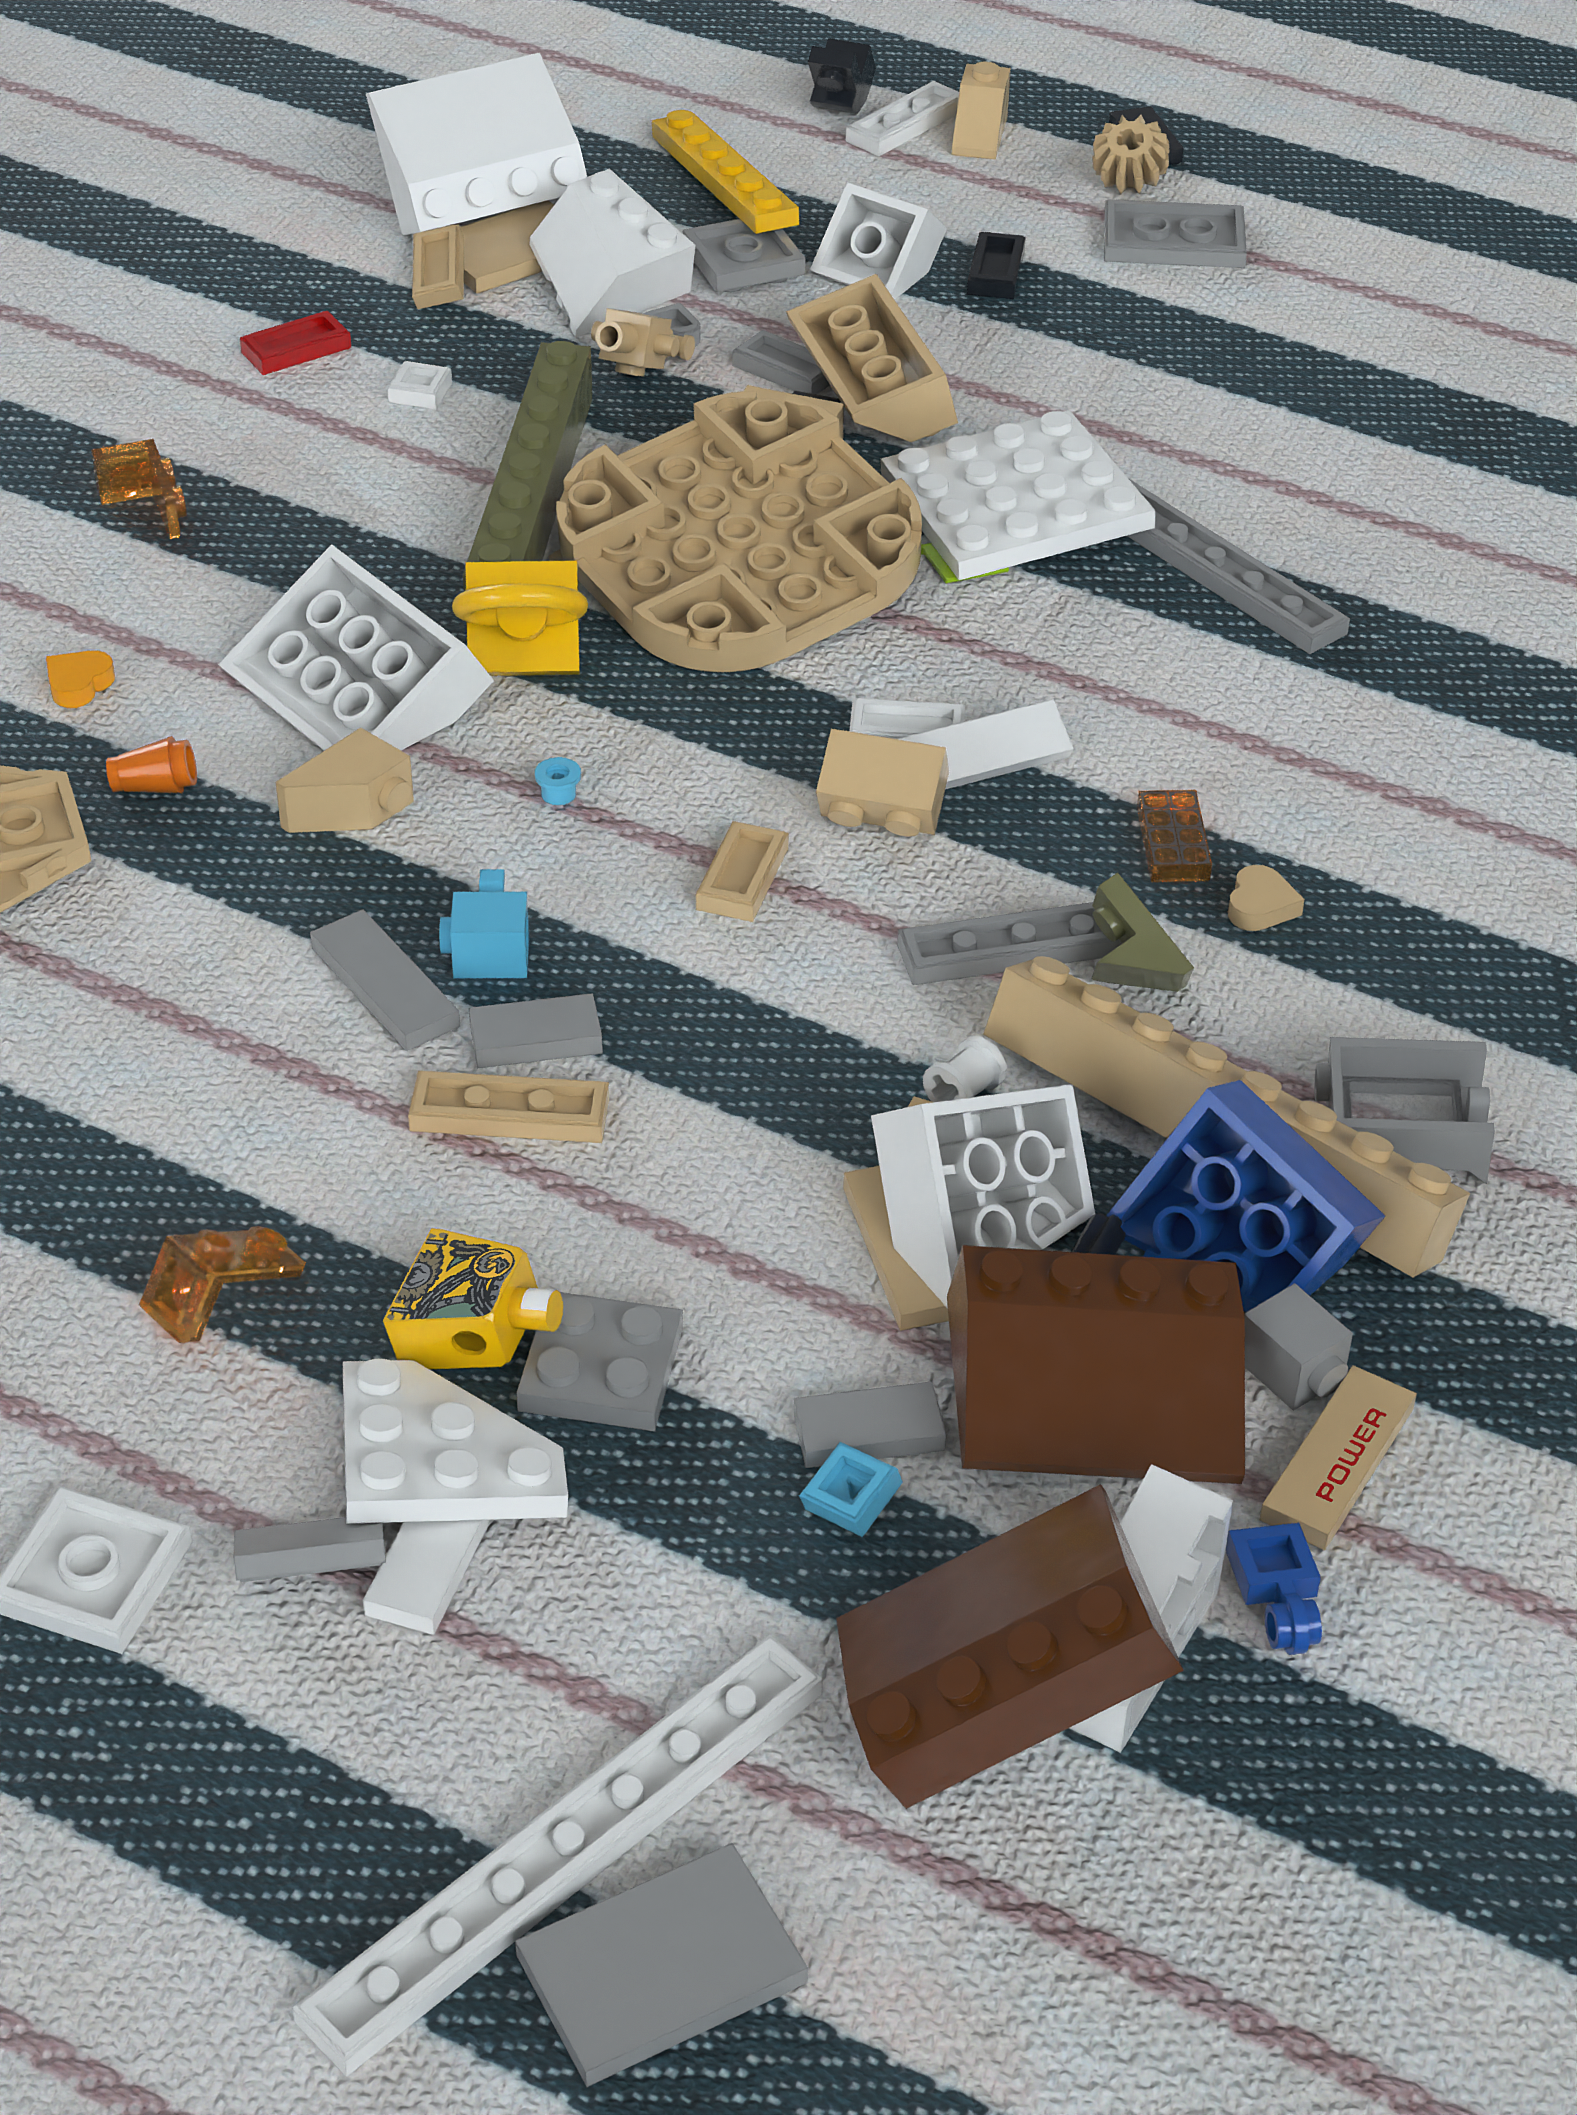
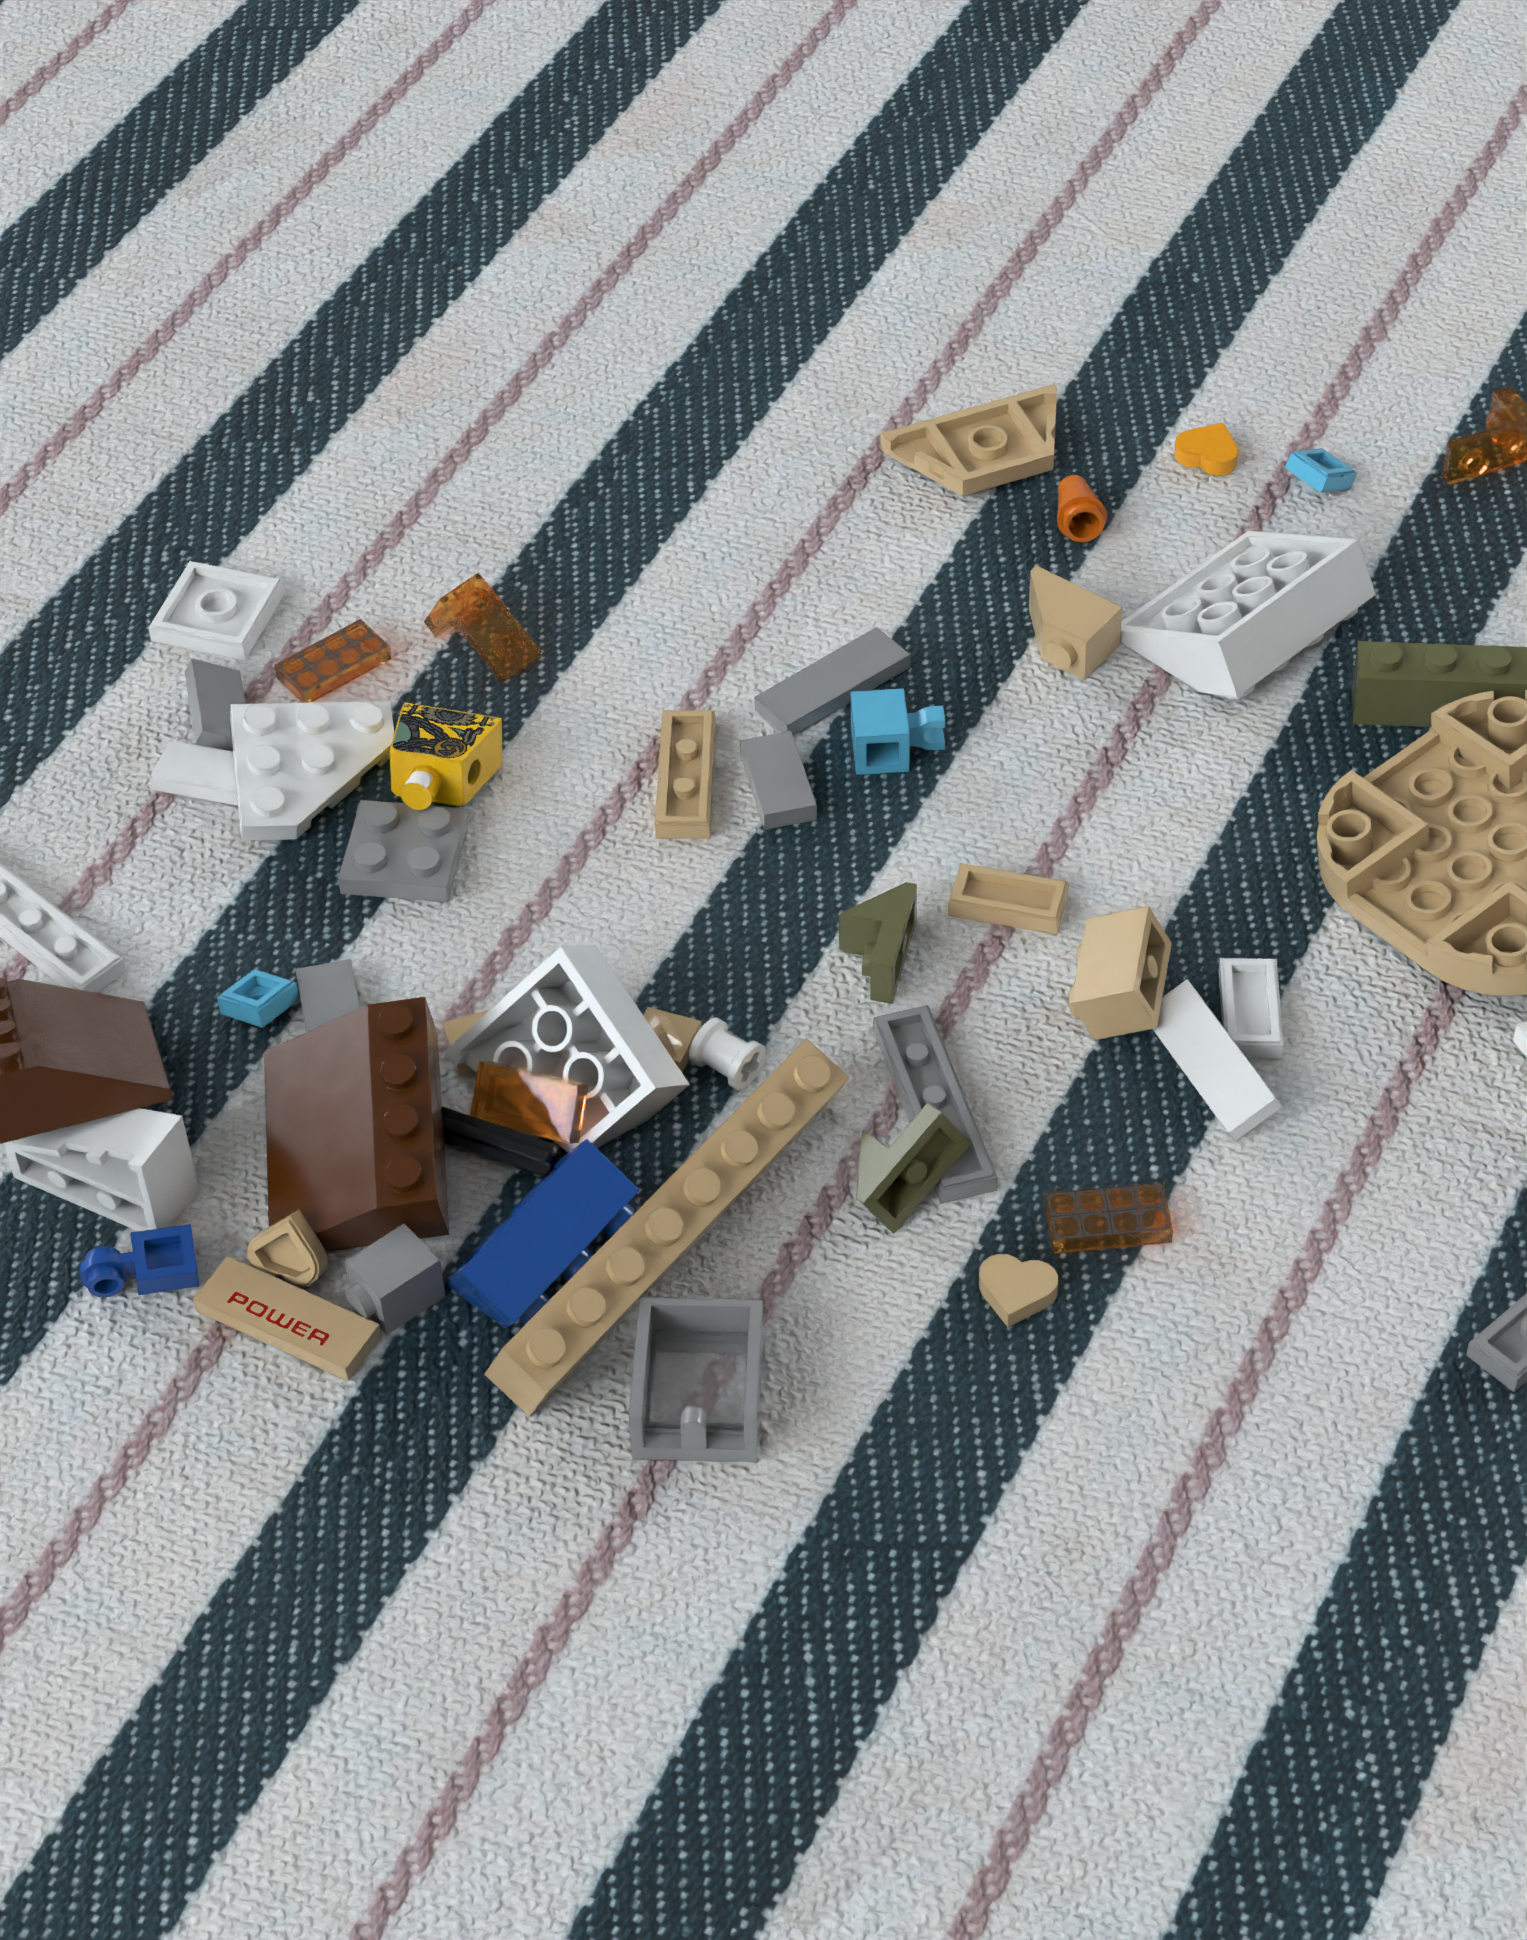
camera: 90 degrees right, 5 degrees up
(149, 601) = (1321, 470): none -> medium azure tile
(235, 1435) = (332, 662): none -> clear orange tile
(523, 616) = (1319, 695): yellow tile -> none
(558, 780) = (1112, 760): medium azure piece -> none
(807, 941) = (882, 934): none -> olive slope
(1051, 1208) = (529, 1101): none -> clear orange tile
(1259, 1443) = (289, 1251): none -> tan tile

